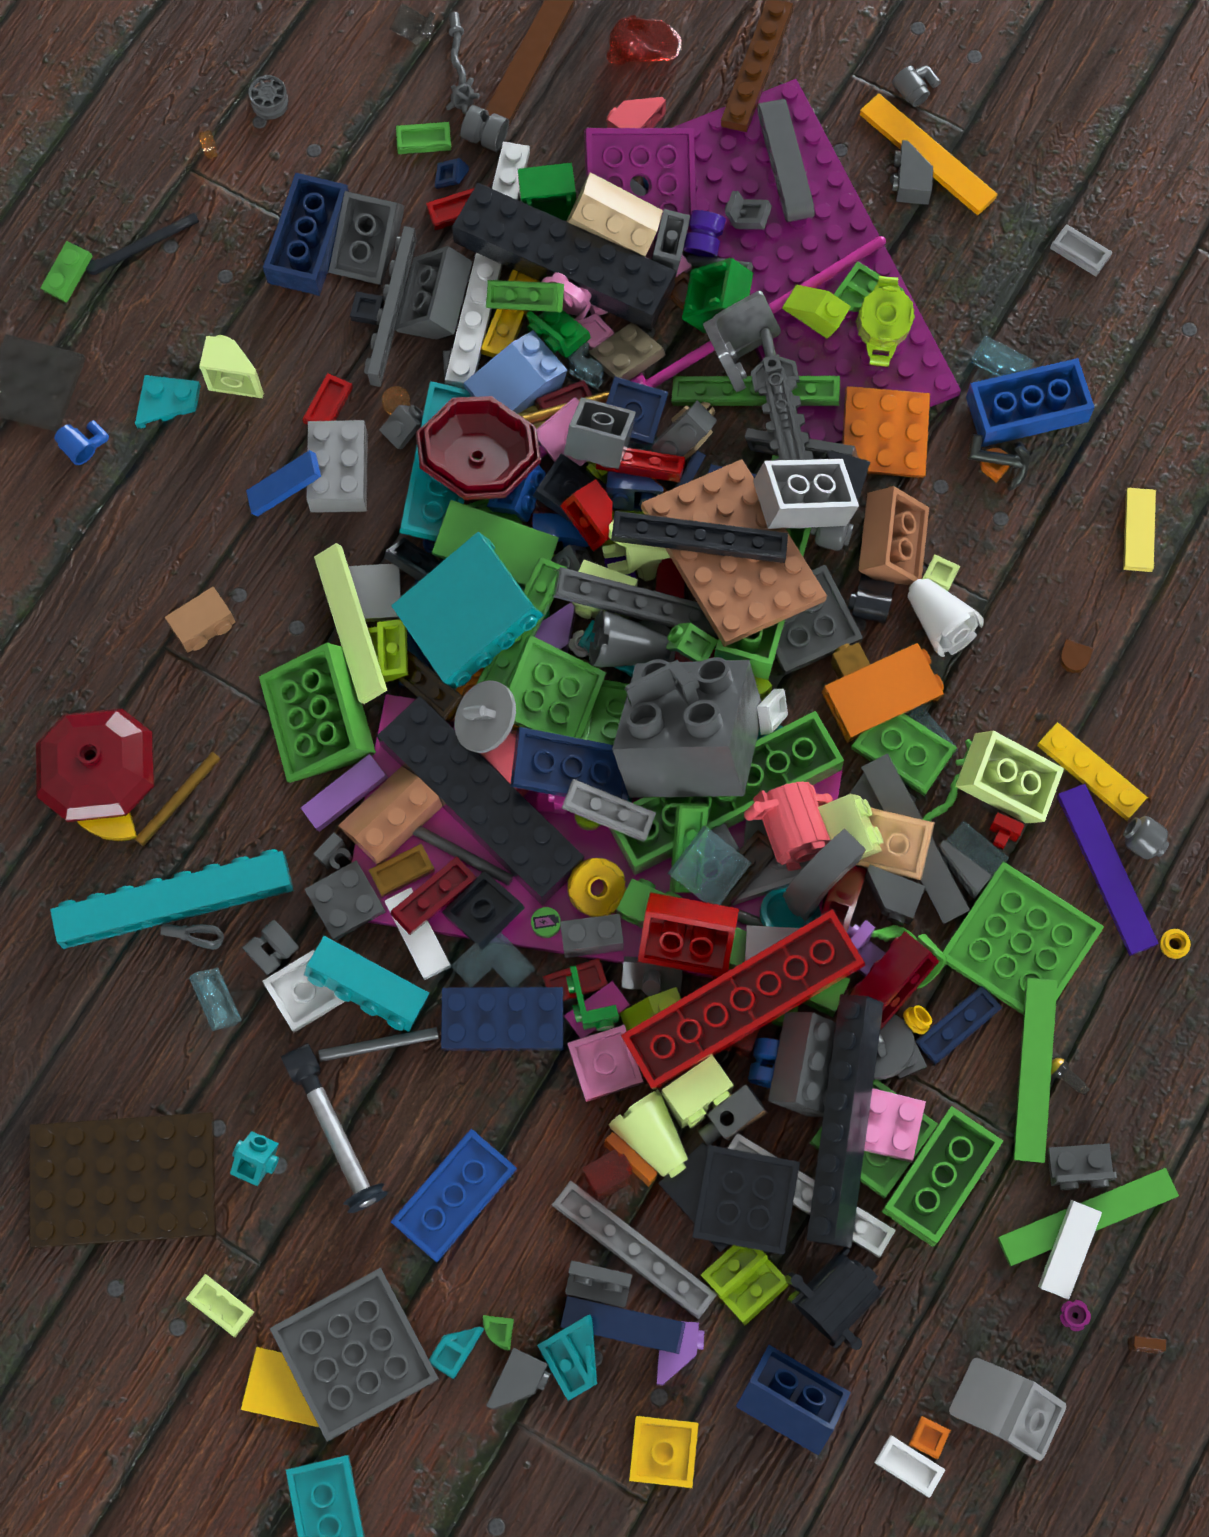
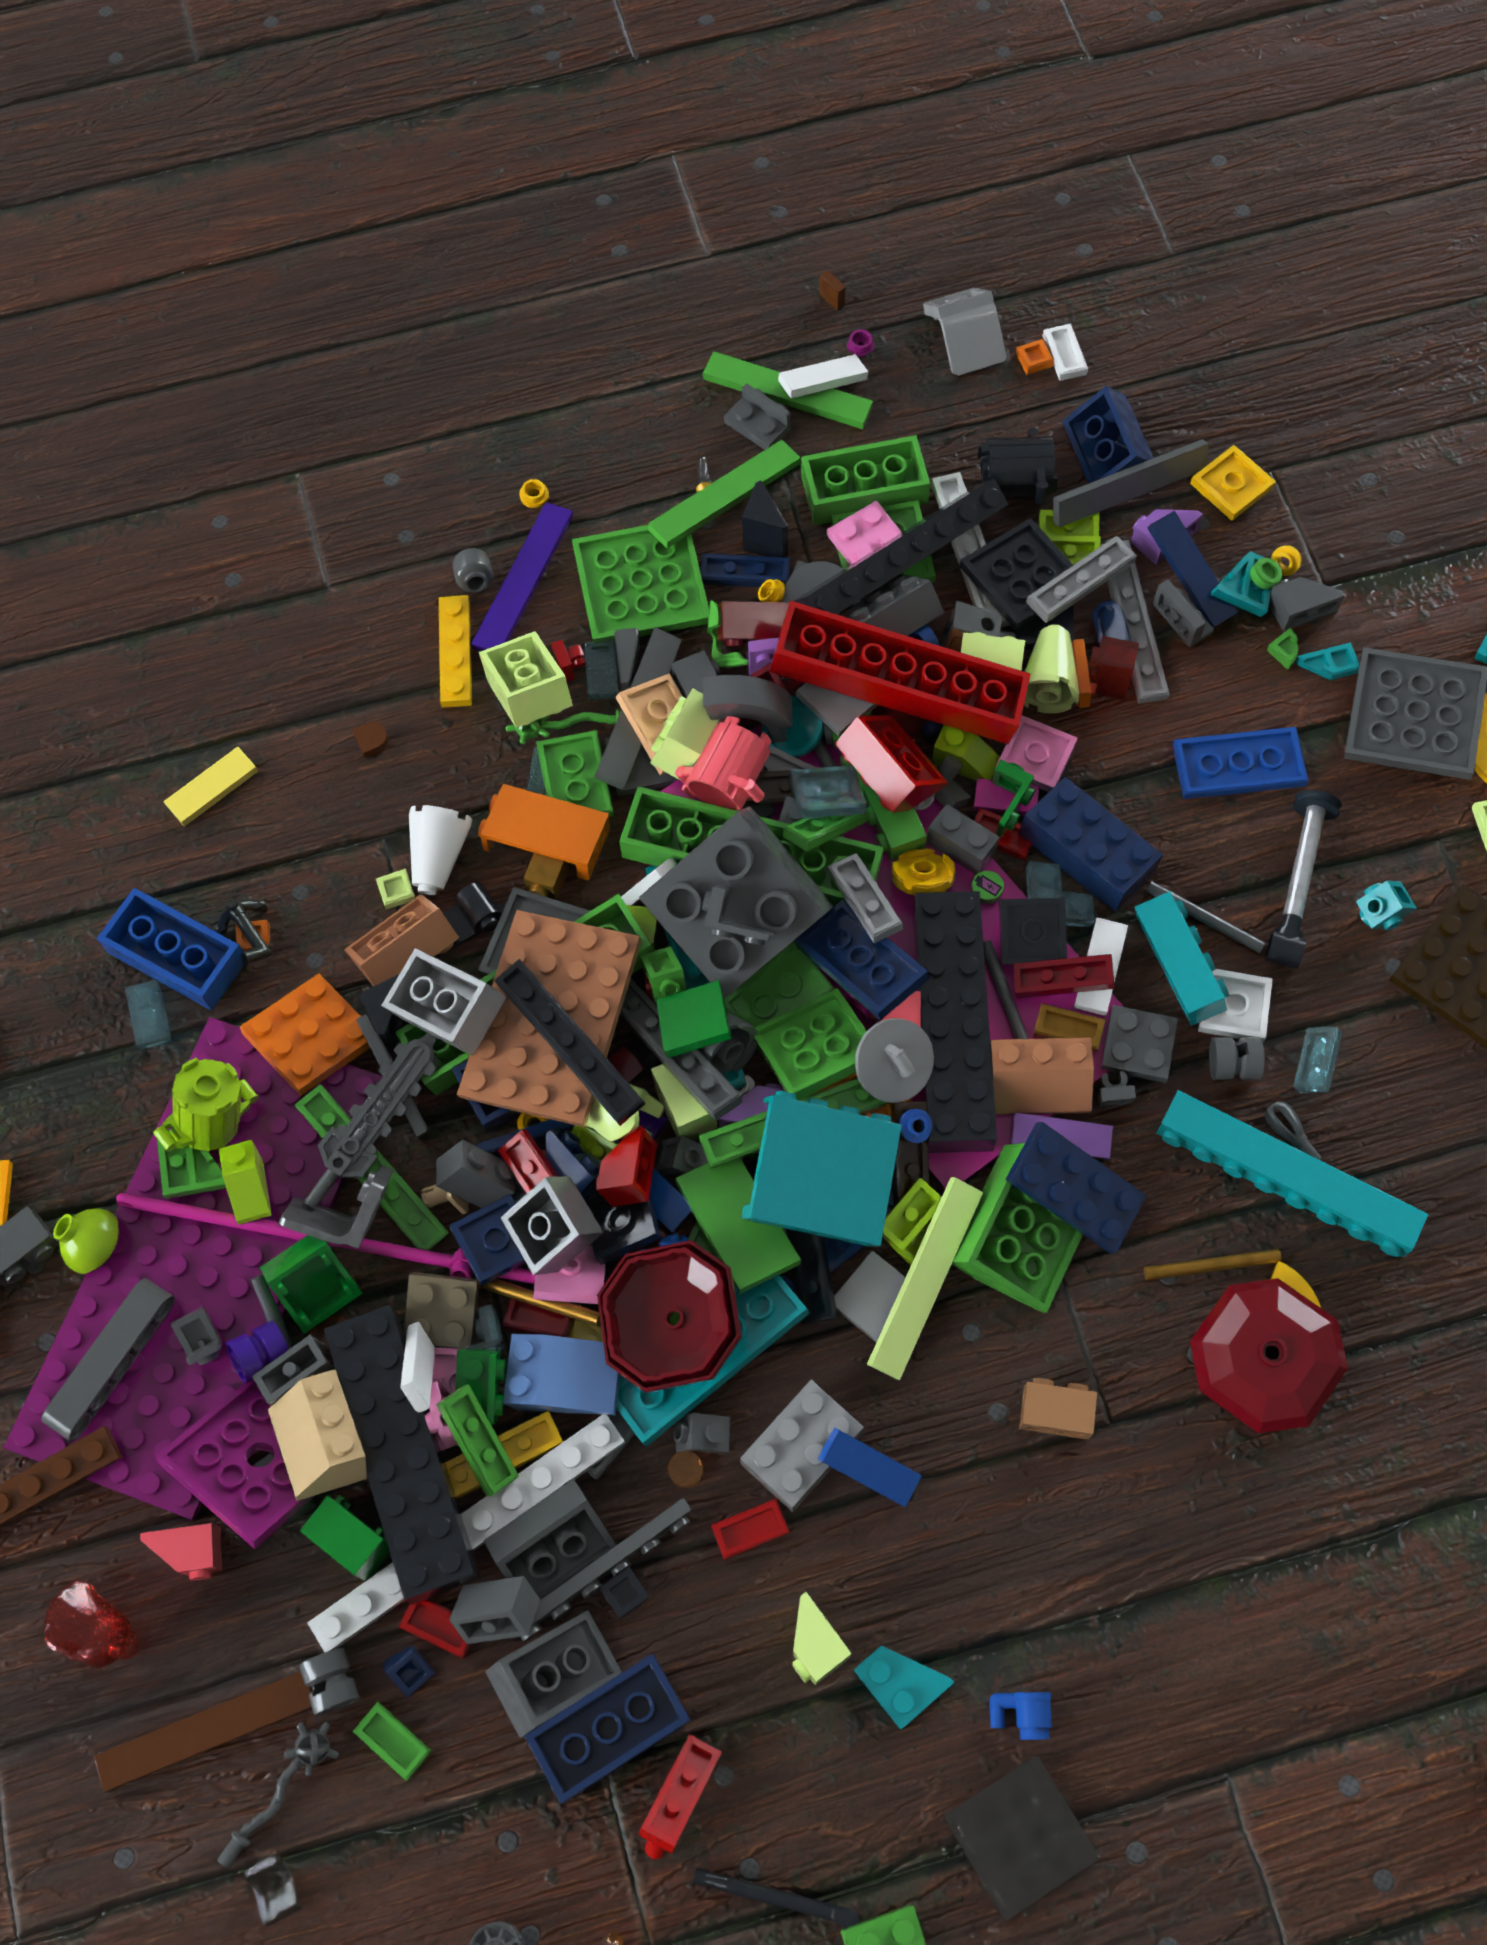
camera: 135 degrees left, 5 degrees down
(237, 237) = (678, 1797): none -> red piece
(302, 758) = (1076, 1187): none -> dark blue plate
(425, 229) = (495, 1610): none -> dark grey brick
(440, 698) = (907, 1121): none -> blue plate
(561, 1411) = (1292, 555): none -> yellow plate
(564, 1375) = (1266, 573): none -> bright green tile
(598, 297) = (418, 1367): none -> white tile
(638, 624) = (693, 1019): none -> green tile
(641, 1222) = (1110, 621): none -> dark blue tile
(695, 1231) = (1081, 579): none -> light grey tile
(738, 1366) = (1129, 483): none -> dark grey tile
(876, 206) = (87, 1238): none -> lime piece
(976, 1062) = (763, 525): none -> black slope

